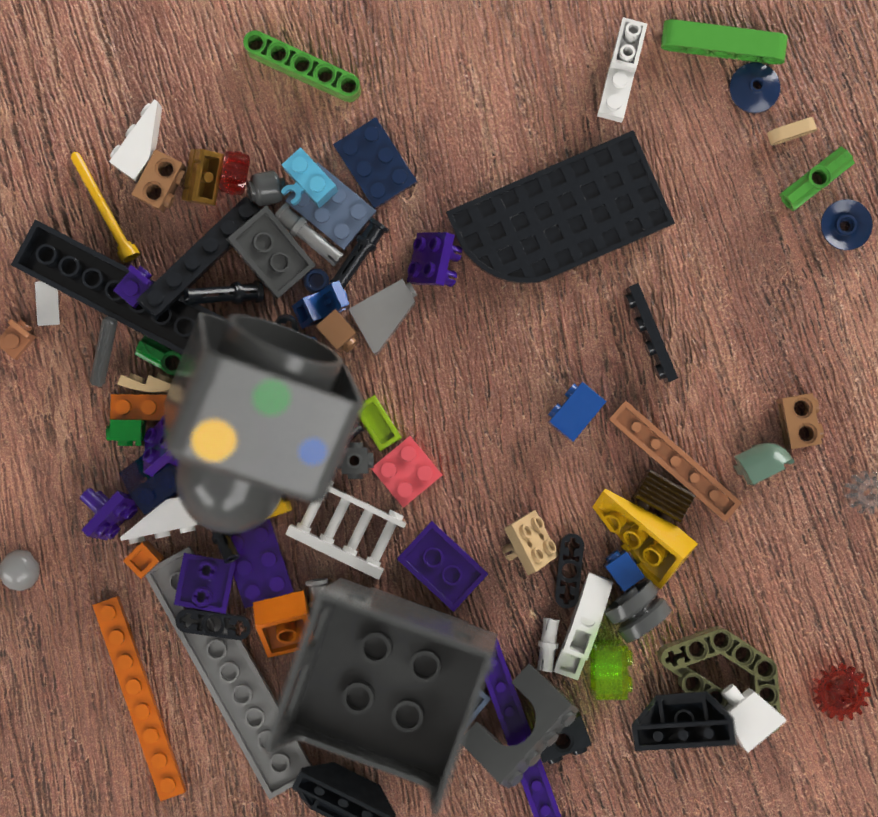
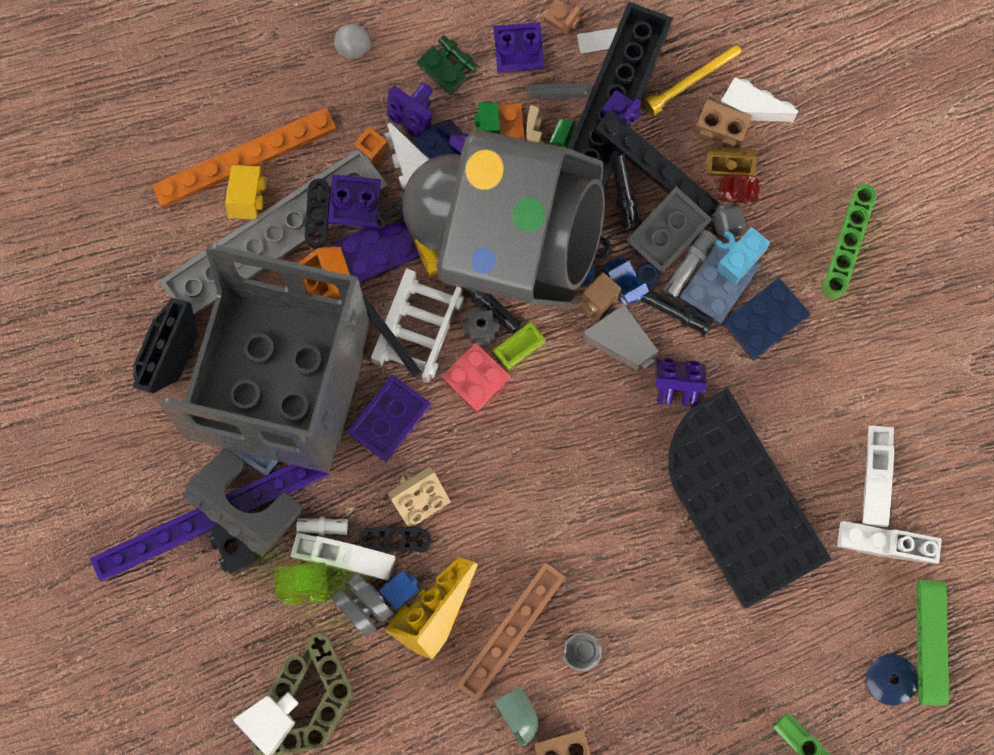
camera: 90 degrees right, 10 degrees down
(47, 389) = (518, 47): none -> dark purple plate
(61, 476) = (441, 70): none -> dark green plate
(181, 701) = (244, 192): none -> yellow brick
(358, 558) = (392, 339): none -> black bar
(553, 70) = (878, 476): none -> white slope
(576, 411) = (549, 529): blue brick -> none
(647, 325) = (642, 590): black plate -> none
(663, 496) = (475, 623): dark brown brick -> none
(683, 722) = (257, 658): black wedge -> none
(703, 391) = (582, 652): none -> light grey hair
(791, 131) = (852, 718): tan beam -> none

